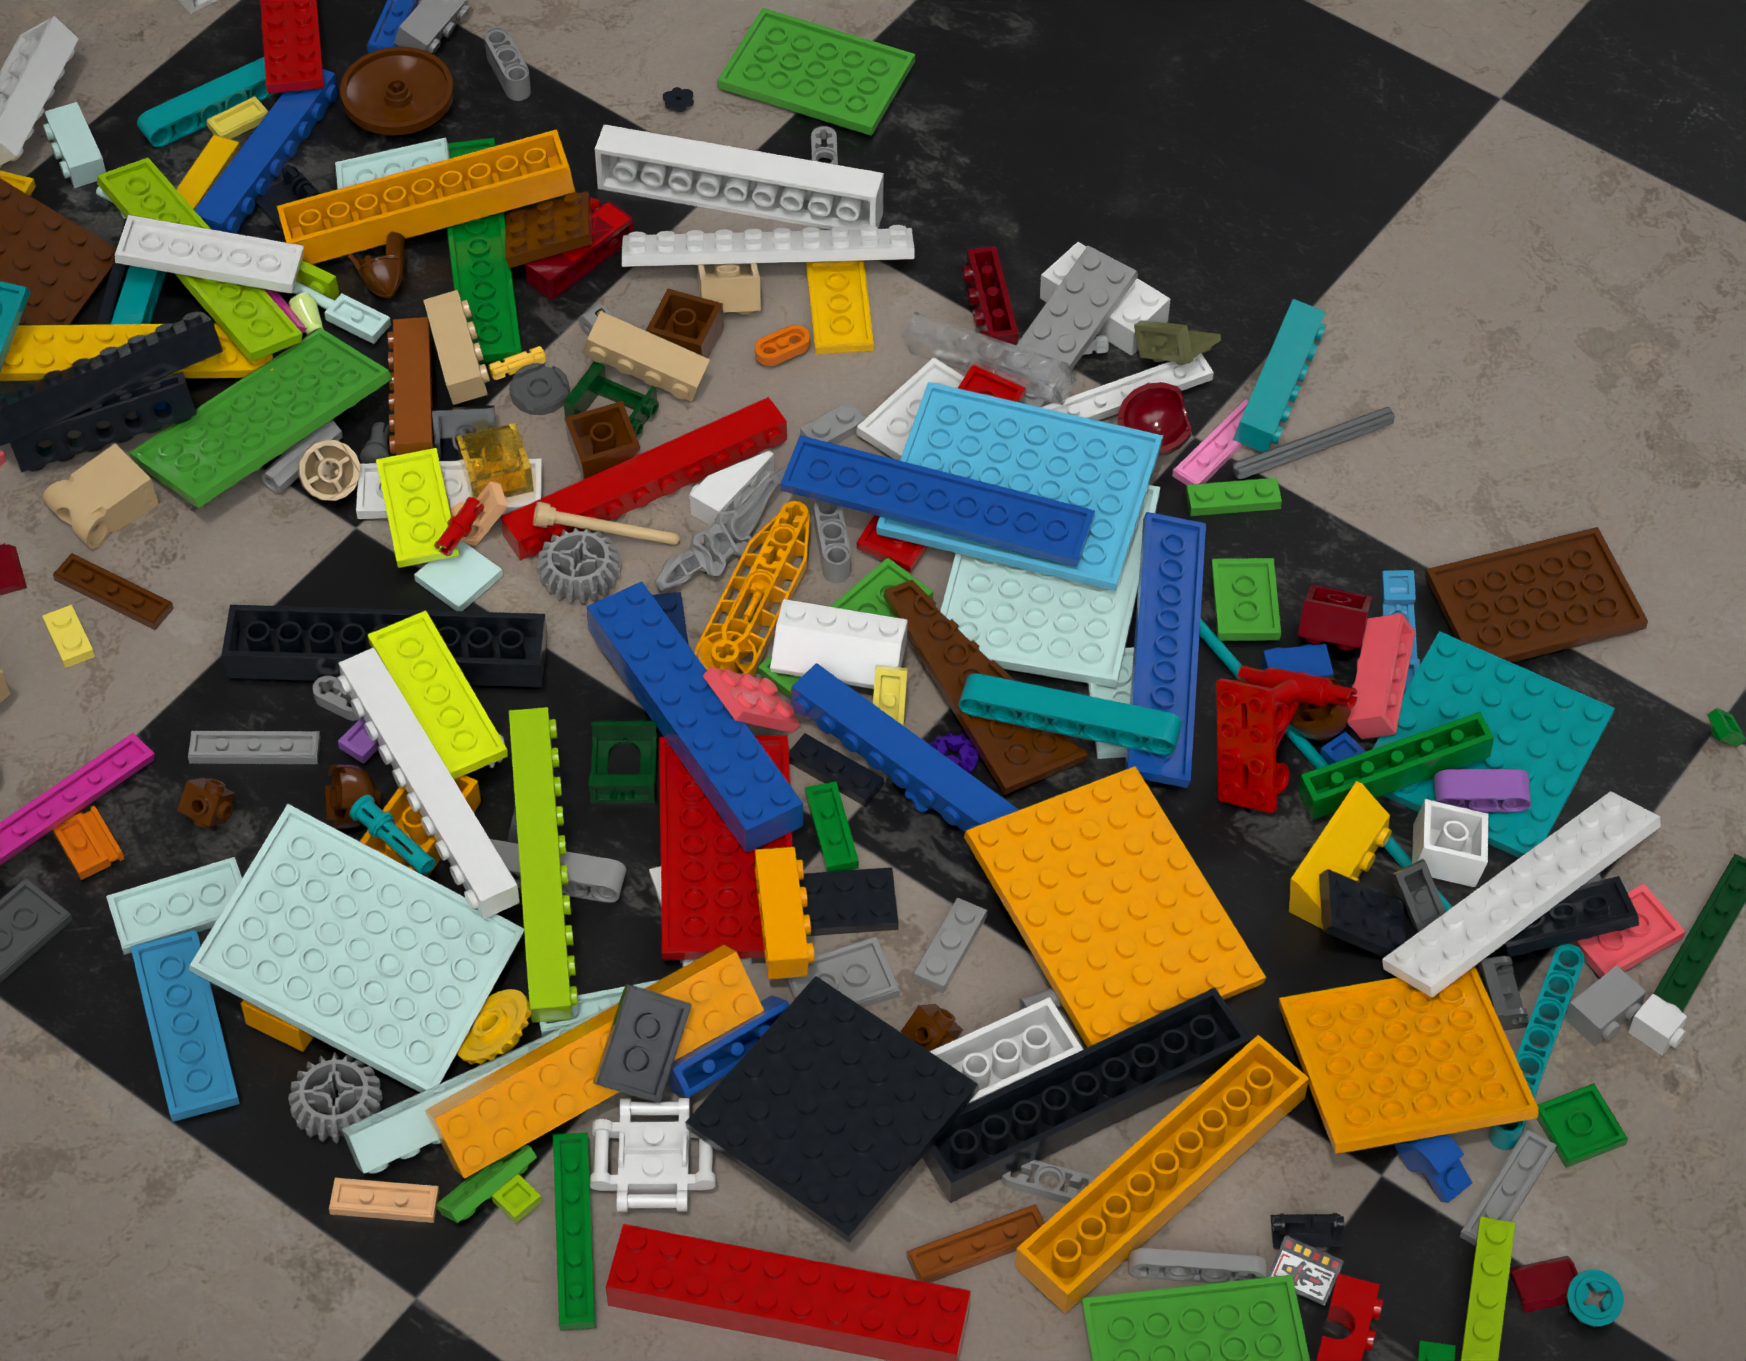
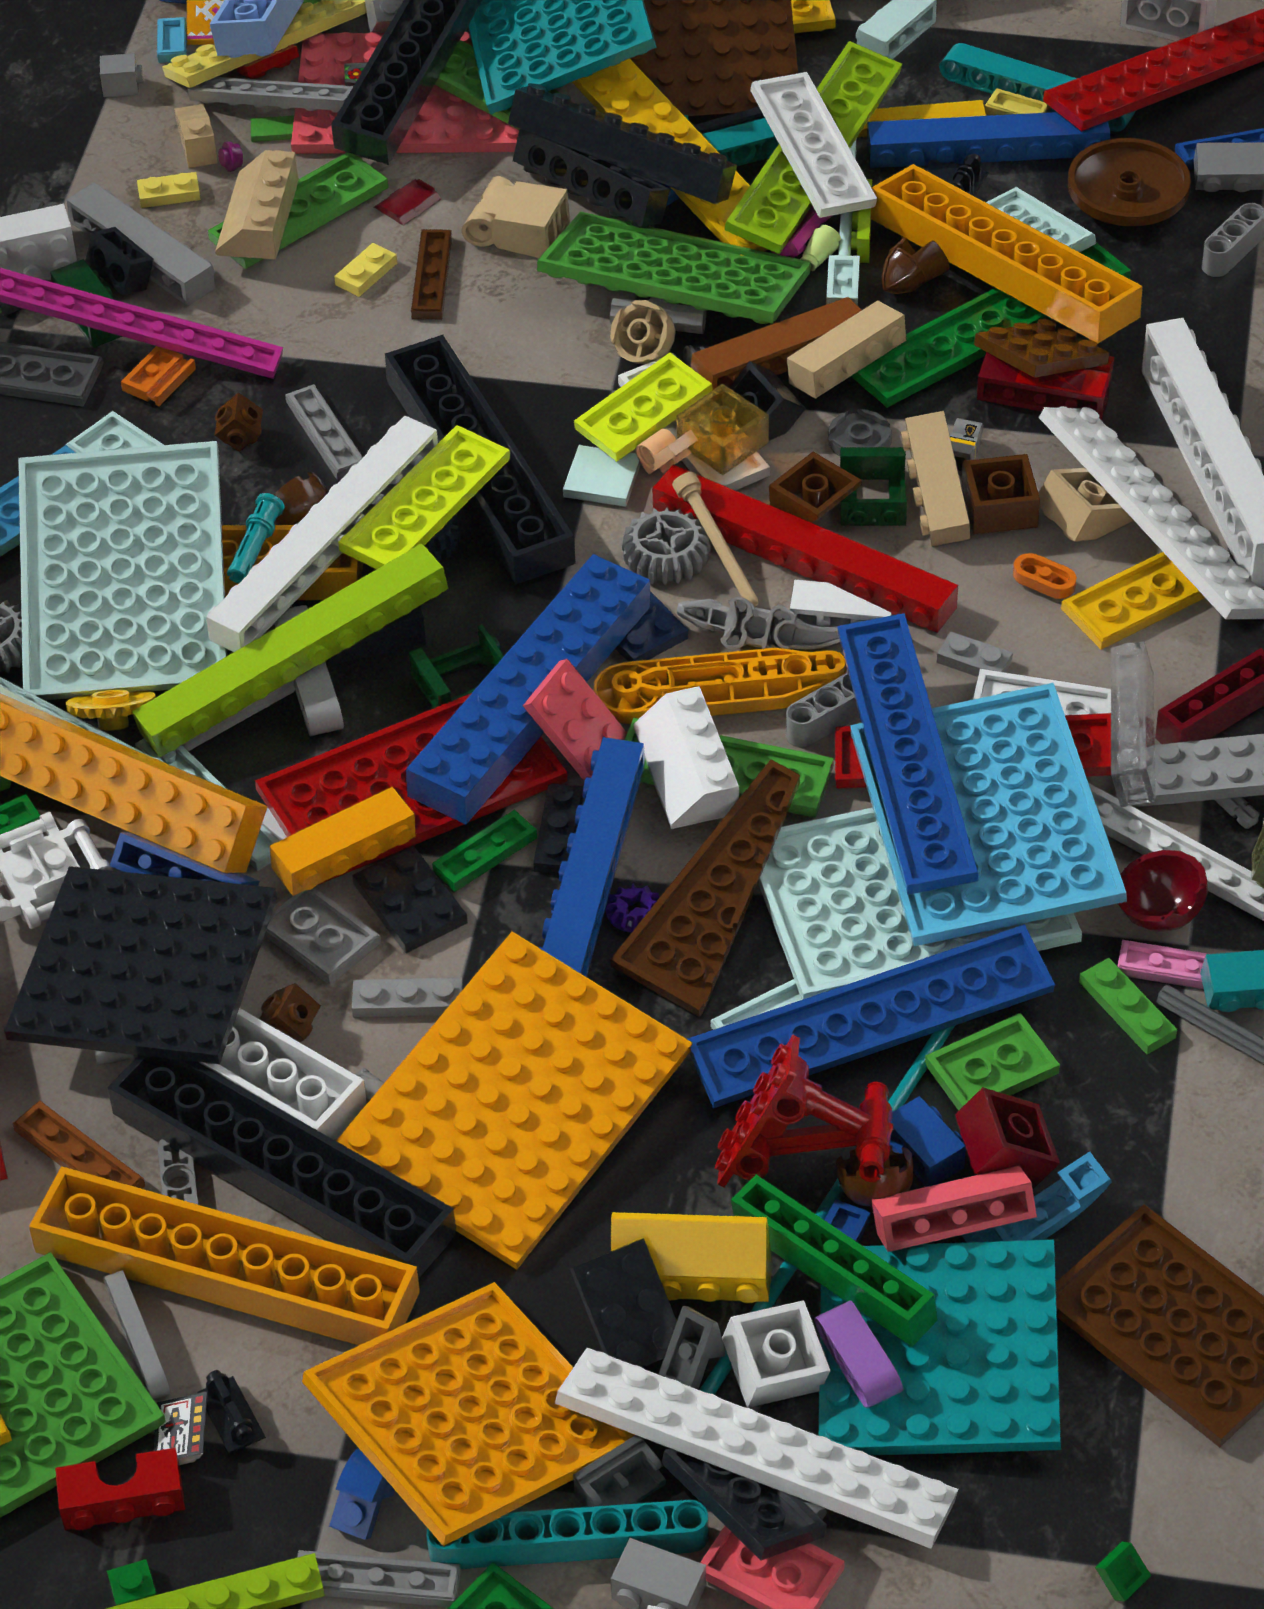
camera: 65 degrees right, 5 degrees down
(459, 526) = (633, 437): red pin -> none
(516, 362) = (895, 415): yellow axle -> none
(642, 1043) = (120, 790): black tile -> none
(890, 691) = (654, 824): light yellow plate -> none
(1070, 714) = (715, 962): teal beam -> none

